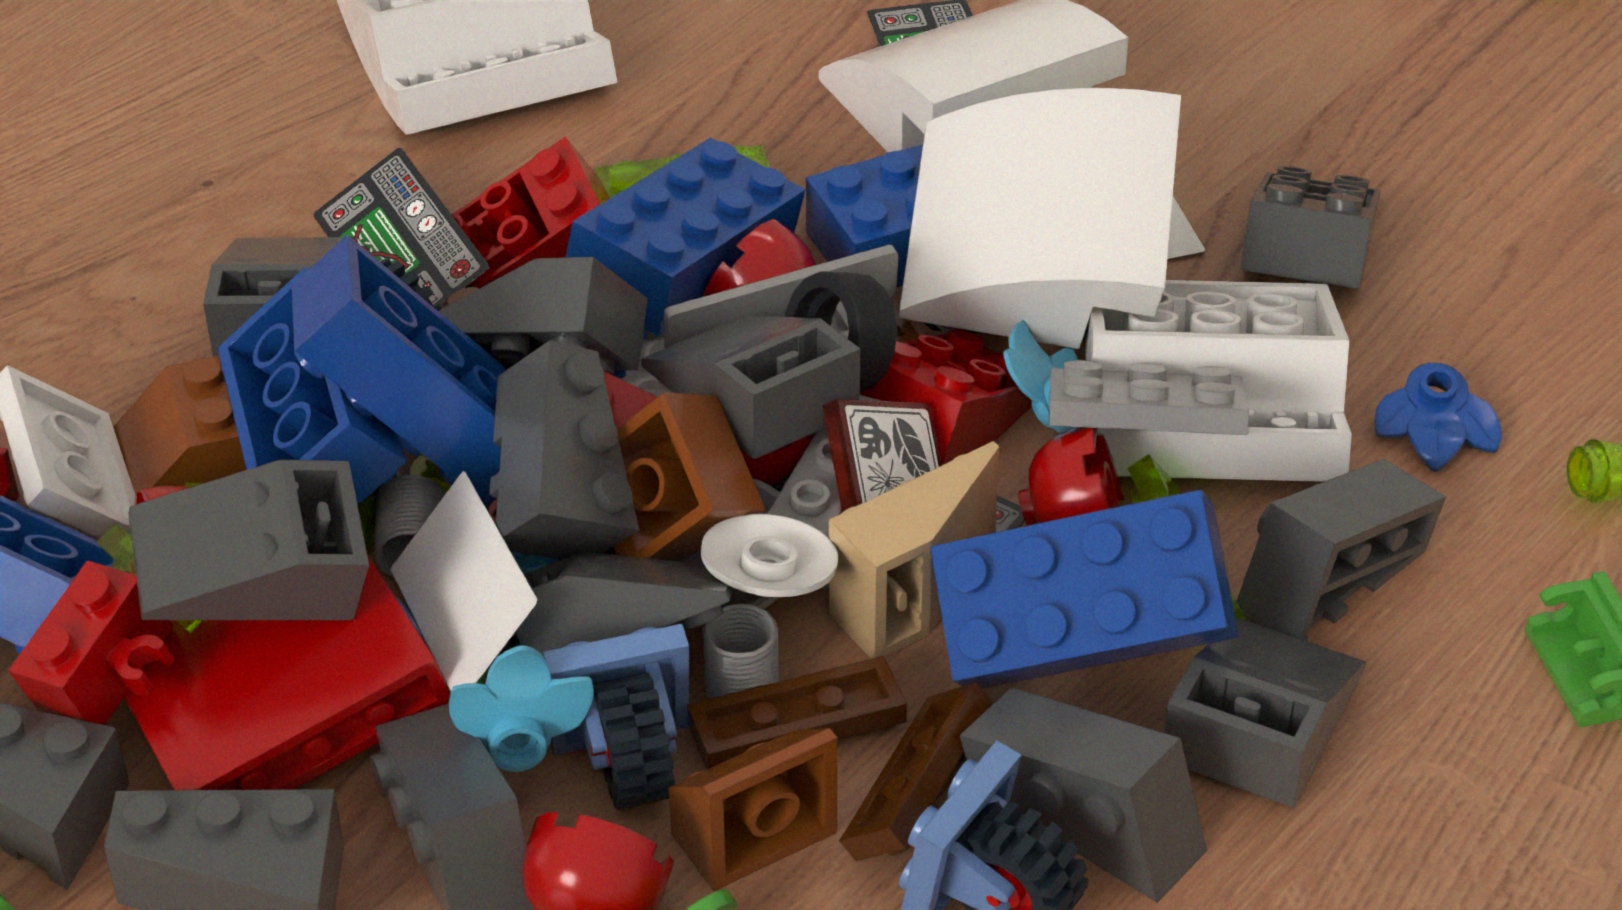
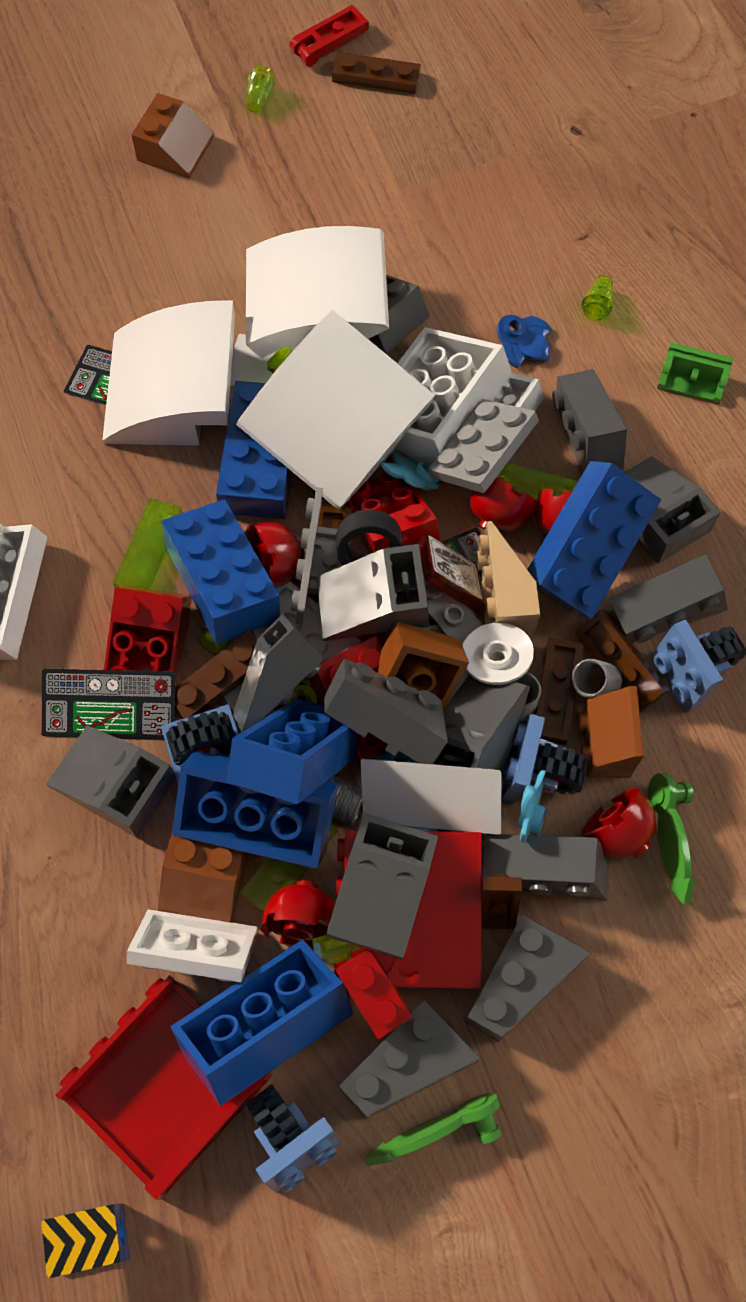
camera: 60 degrees left, 25 degrees up
(345, 752) = (500, 901): none -> reddish brown plate
(863, 745) = (581, 675): none -> light grey piece
(1272, 120) = (308, 274): none -> white slope

